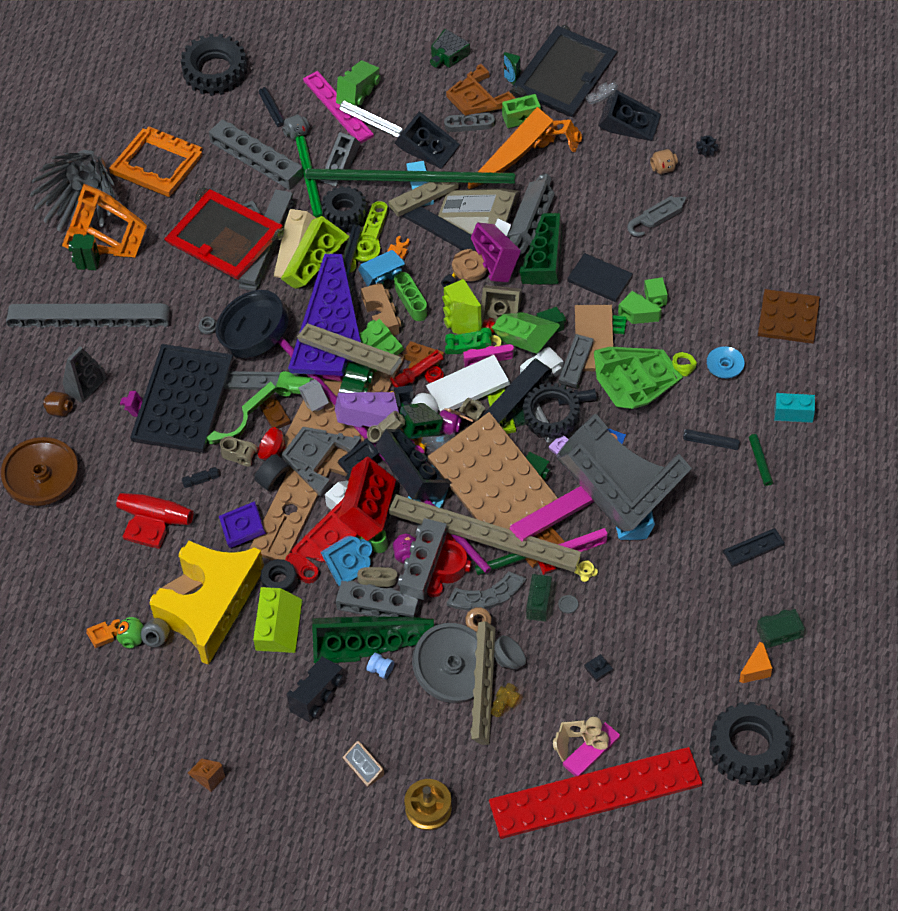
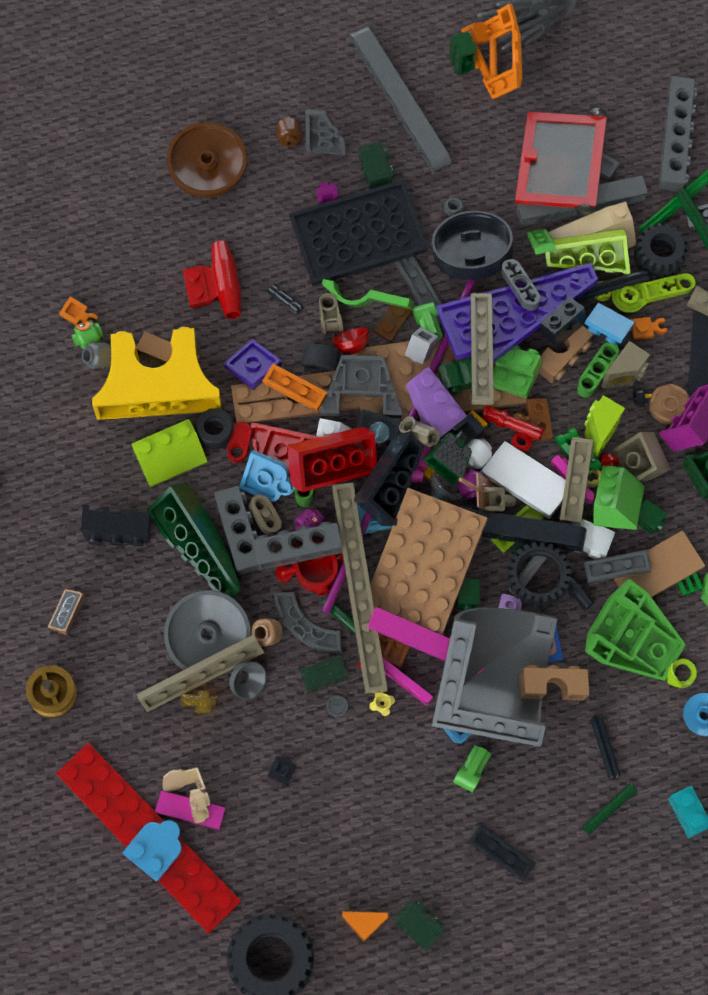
camera: 55 degrees right, 15 degrees up
(133, 359) = (375, 165): none -> clear green brick
(151, 180) = (587, 58): orange hinge -> none
(283, 276) = (541, 241): none -> bright green tile
(285, 500) = (294, 387): none -> orange plate
(298, 300) = (520, 293): none -> dark grey beam
(361, 292) = (563, 322): none -> black brick
(363, 453) = (381, 432): none -> clear light blue tile
(380, 665) = (173, 570): light blue wheel -> none
(423, 272) = (627, 367): none -> dark tan slope
(493, 347) = (576, 480): none -> dark tan plate
(610, 786) = (155, 848): none -> dark azure plate
(647, 434) = (571, 681): none -> medium nougat arch
(678, 536) = (470, 773): none -> bright green piece

